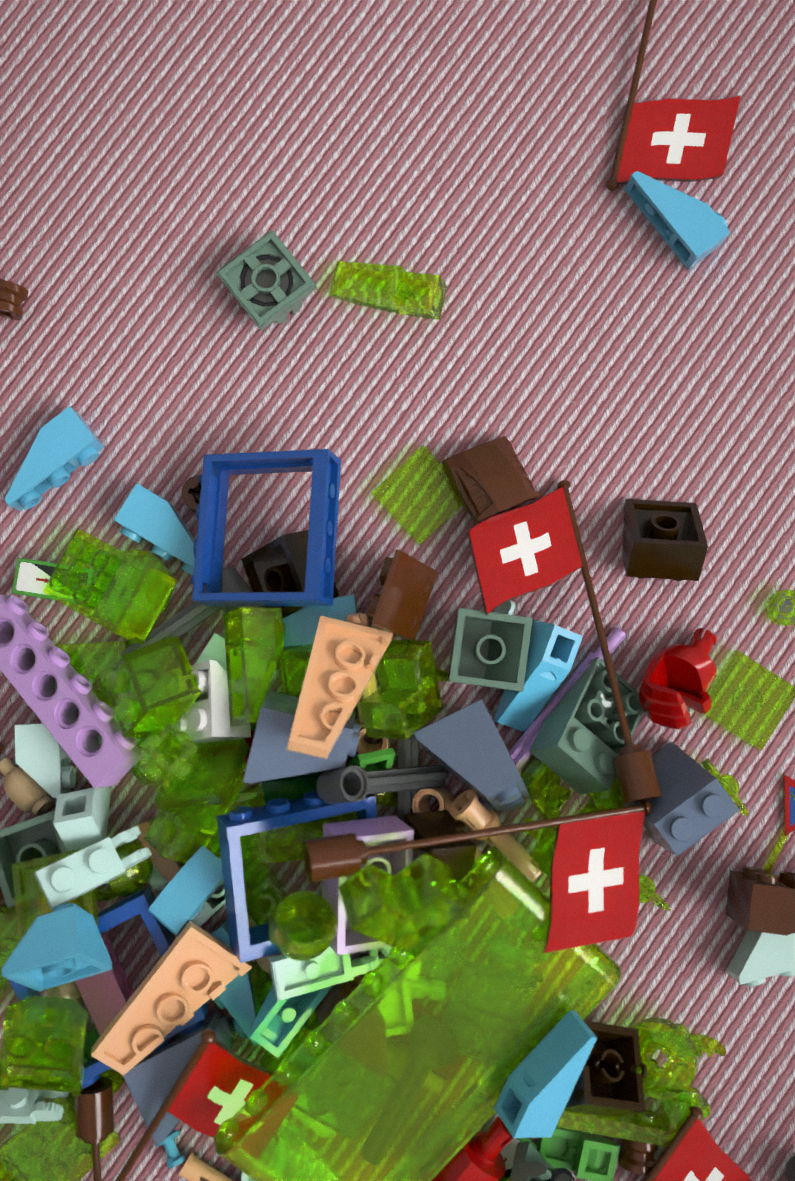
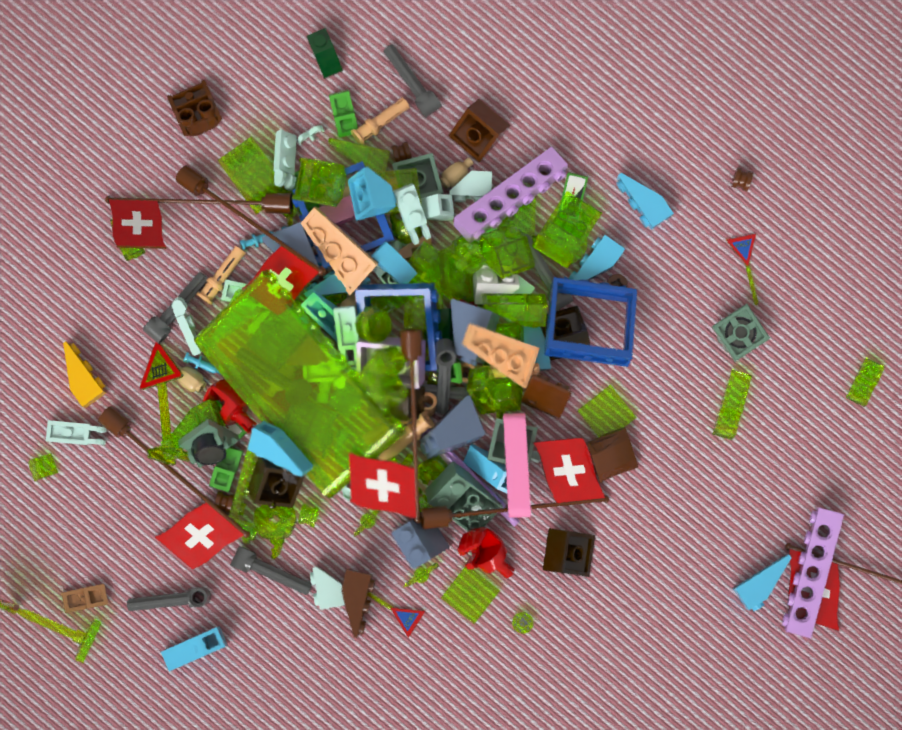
camera: 95 degrees right, 0 degrees up
(125, 292) = (743, 248): none -> piece
(330, 82) = (864, 382): none -> clear neon green slope
(531, 638) = (516, 465): none -> bright pink beam
(645, 996) = (308, 515): none -> clear neon green wheel
(733, 1100) = (246, 560): none -> dark grey axle
(740, 141) = (805, 625): none -> lavender brick

